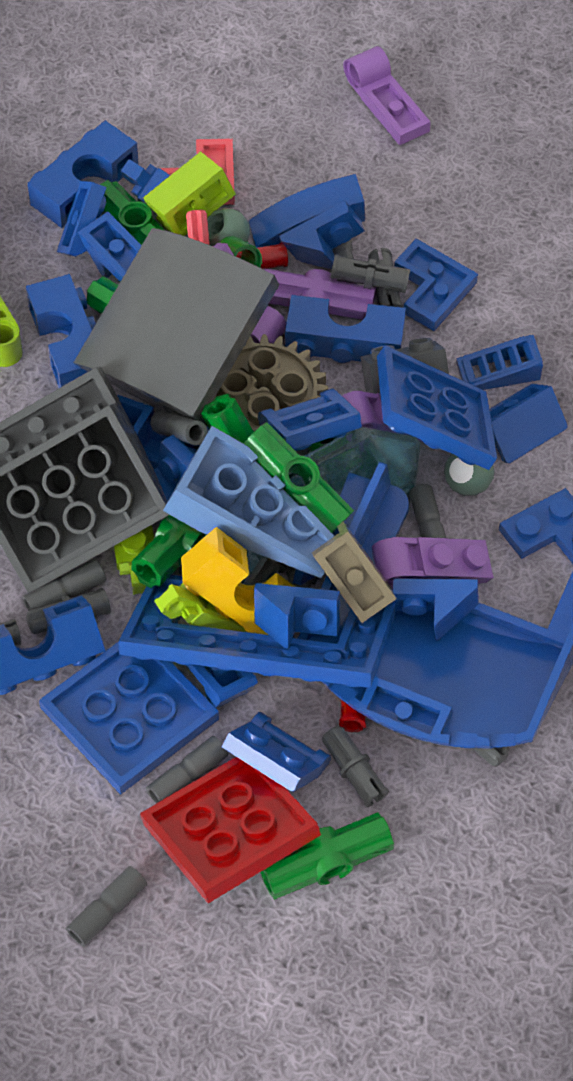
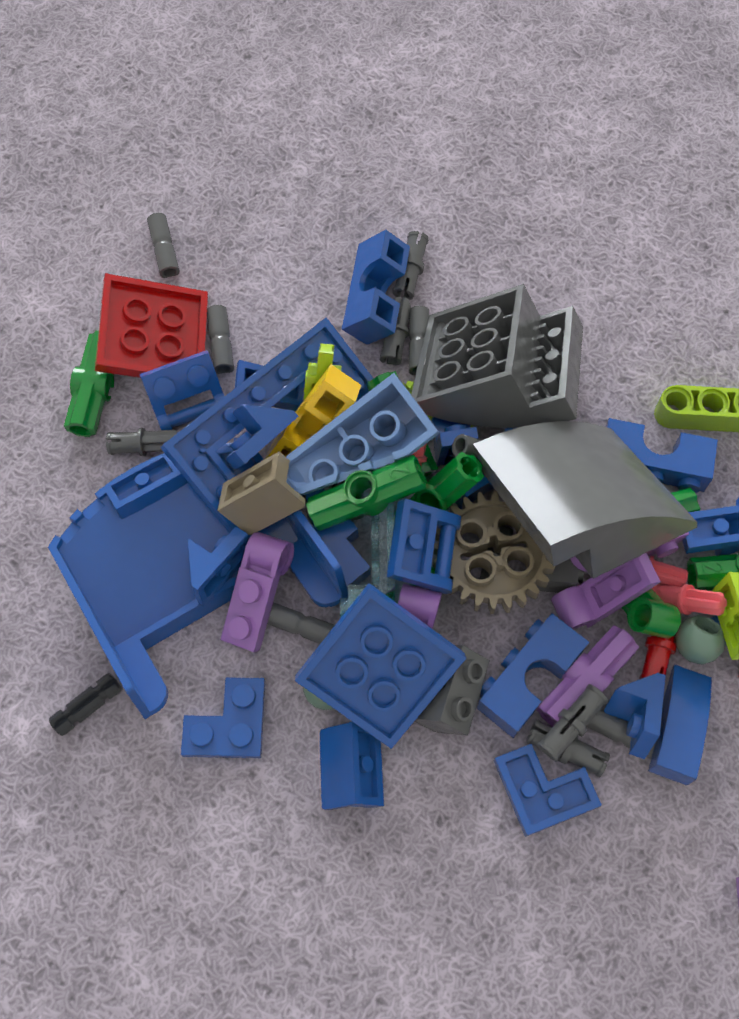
camera: 125 degrees right, 10 degrees up
(128, 714) = (281, 312): blue plate -> none
(509, 350) = (409, 821): blue slope -> none

